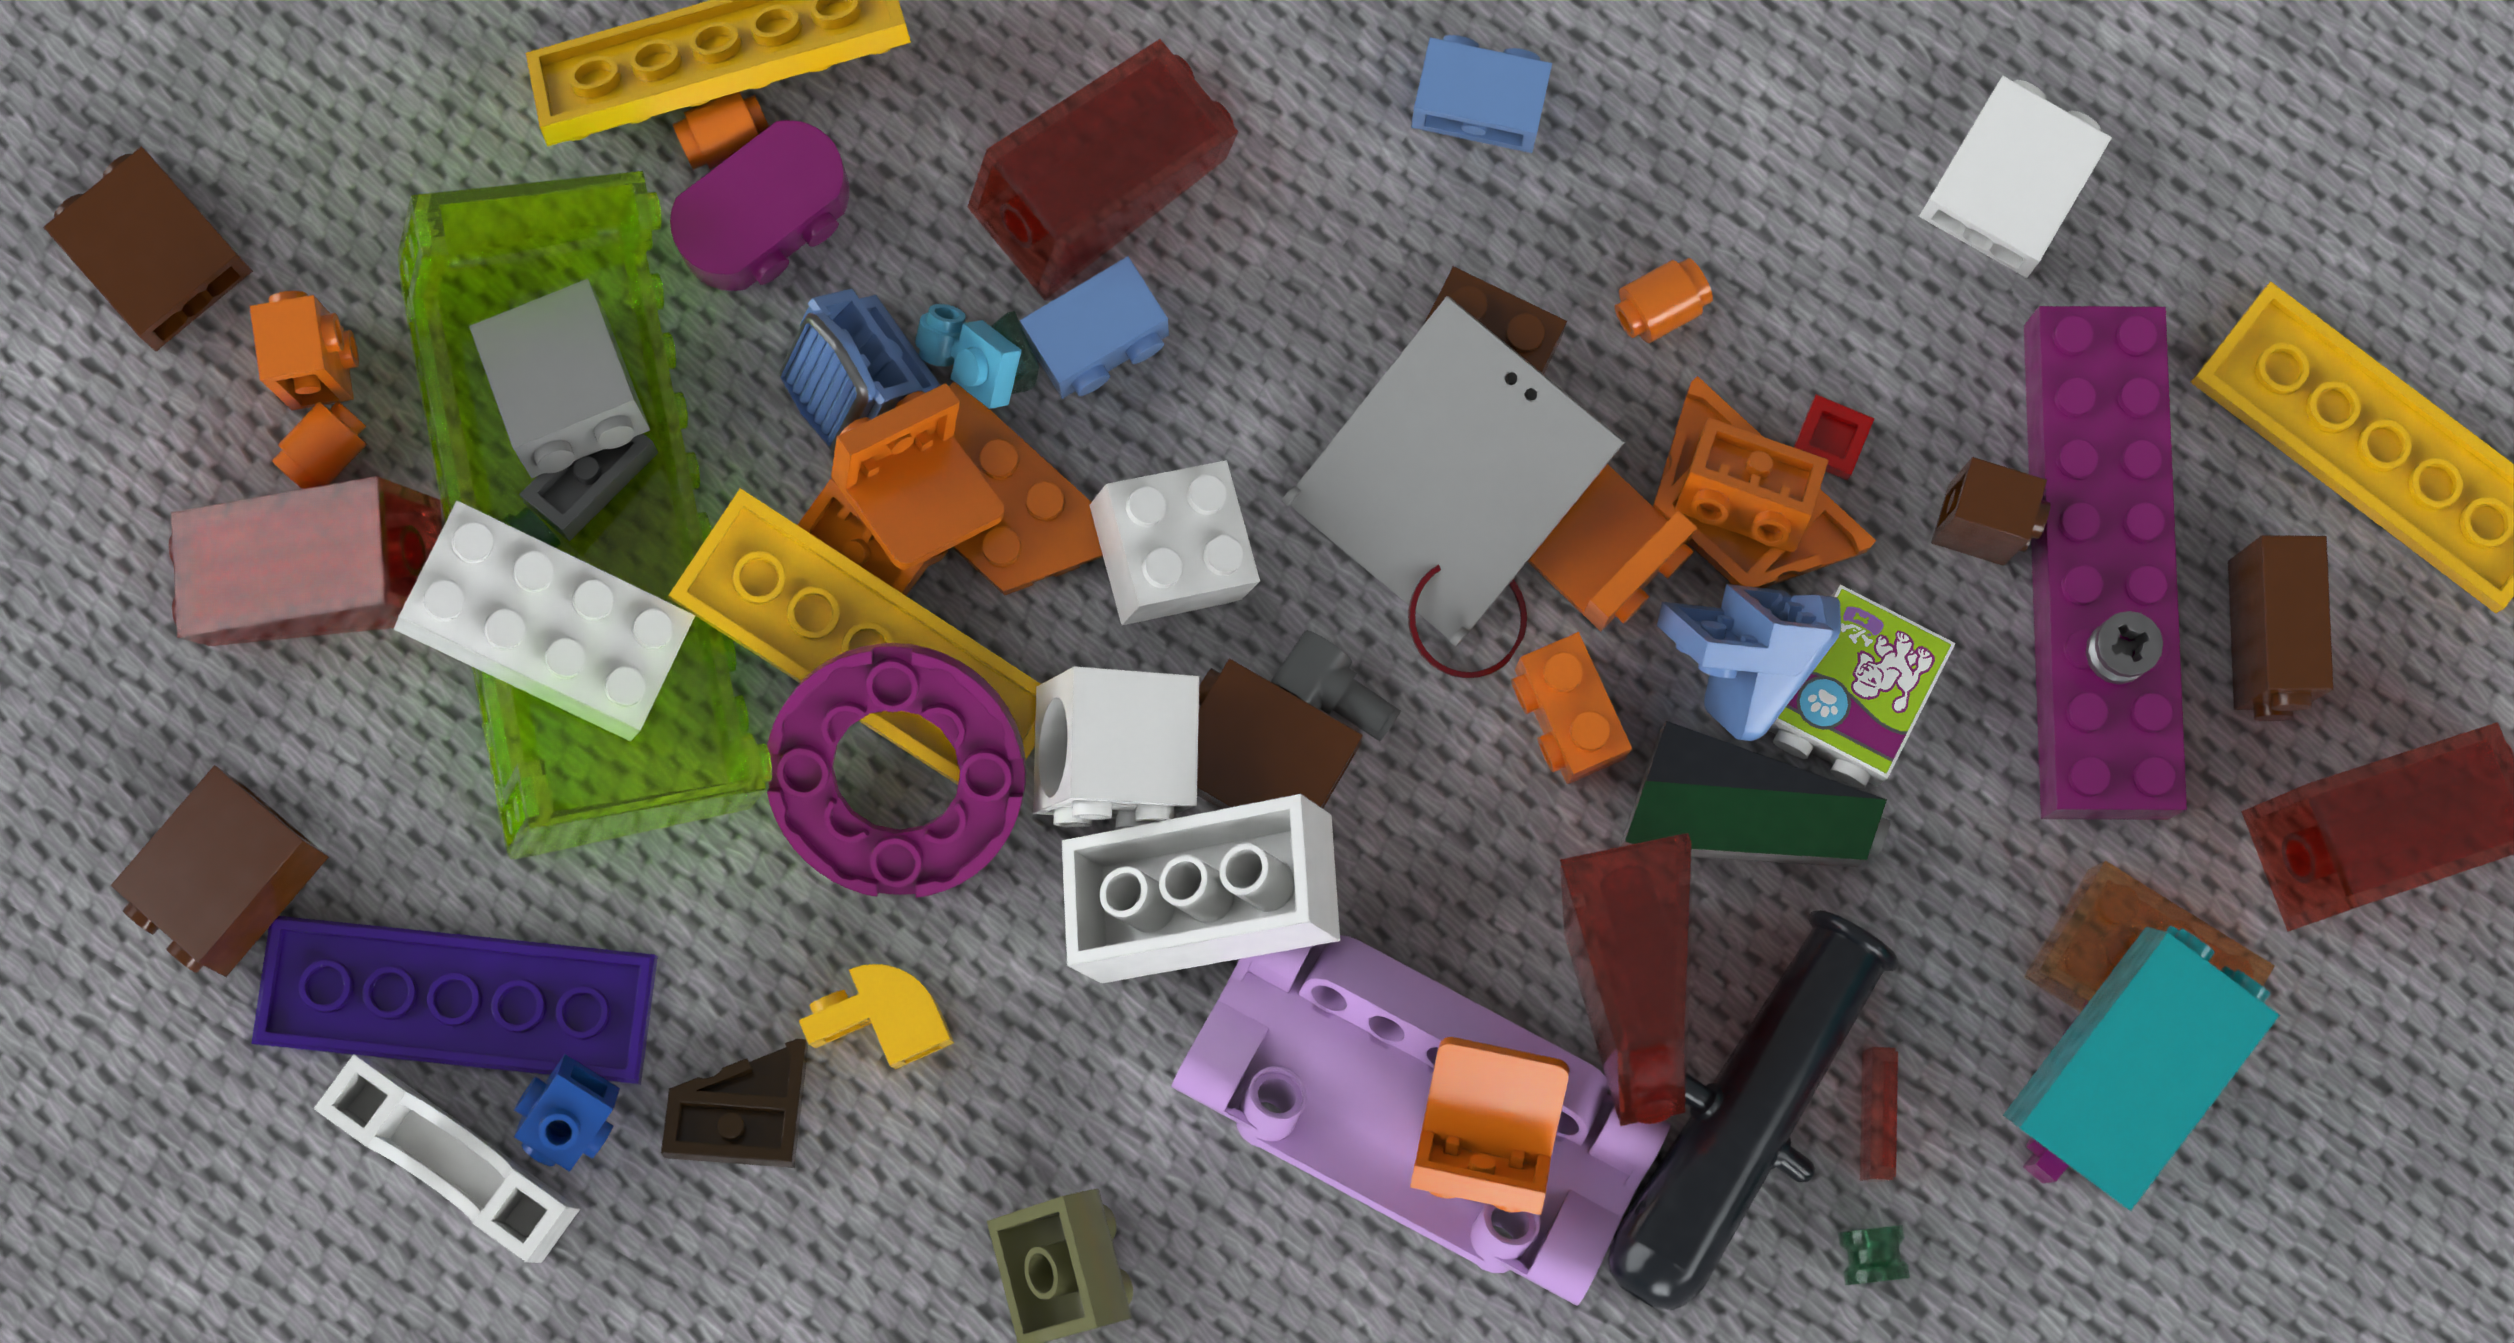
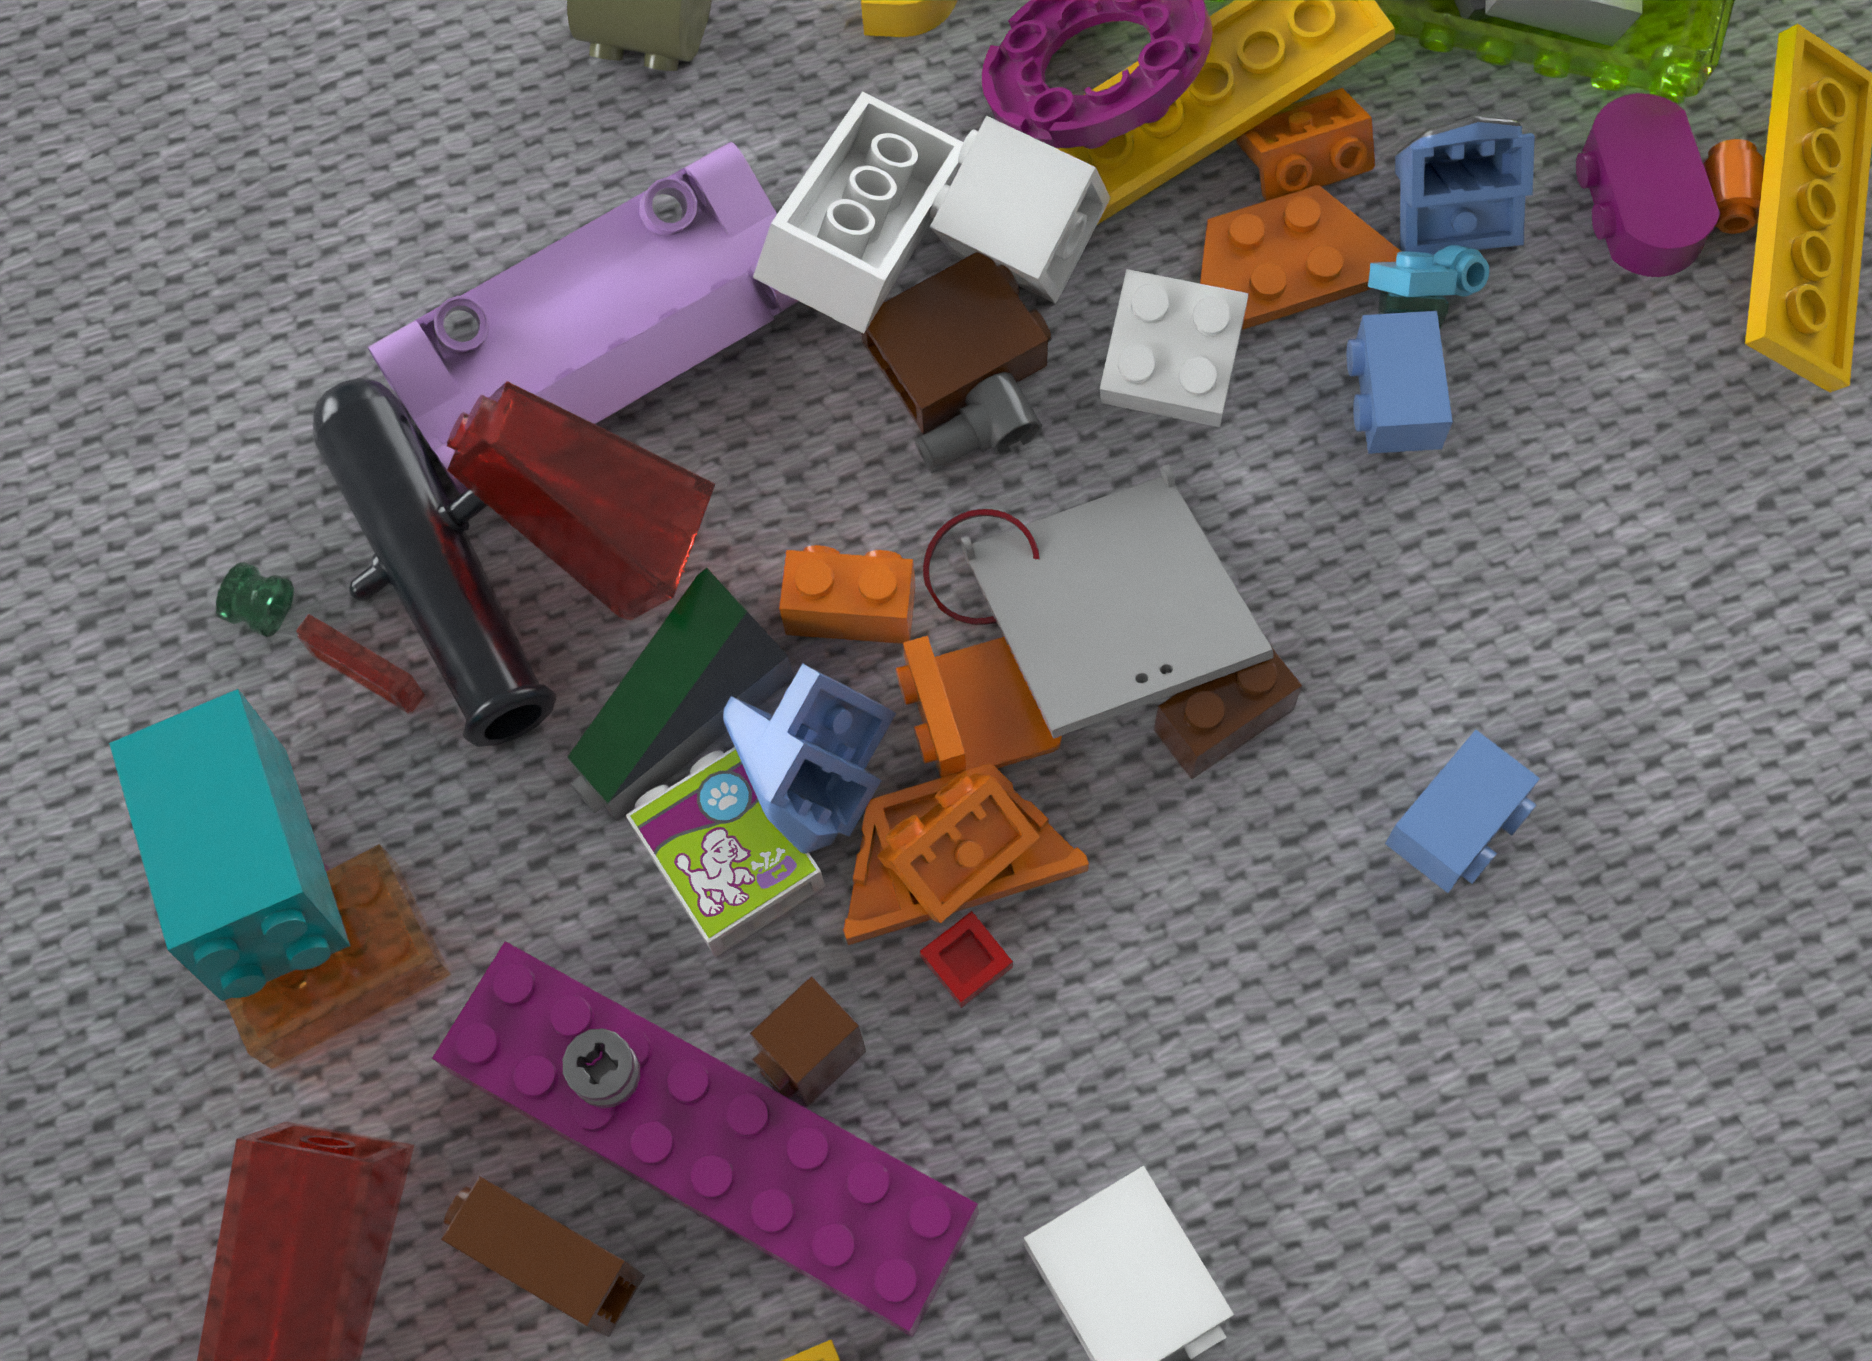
camera: 125 degrees right, 10 degrees down
(914, 478) = (1334, 167): orange bracket -> none
(1099, 165) = (1555, 457): clear red slope -> none
(1490, 1125) = (533, 327): orange bracket -> none
(1663, 300) = (1178, 876): orange brick -> none

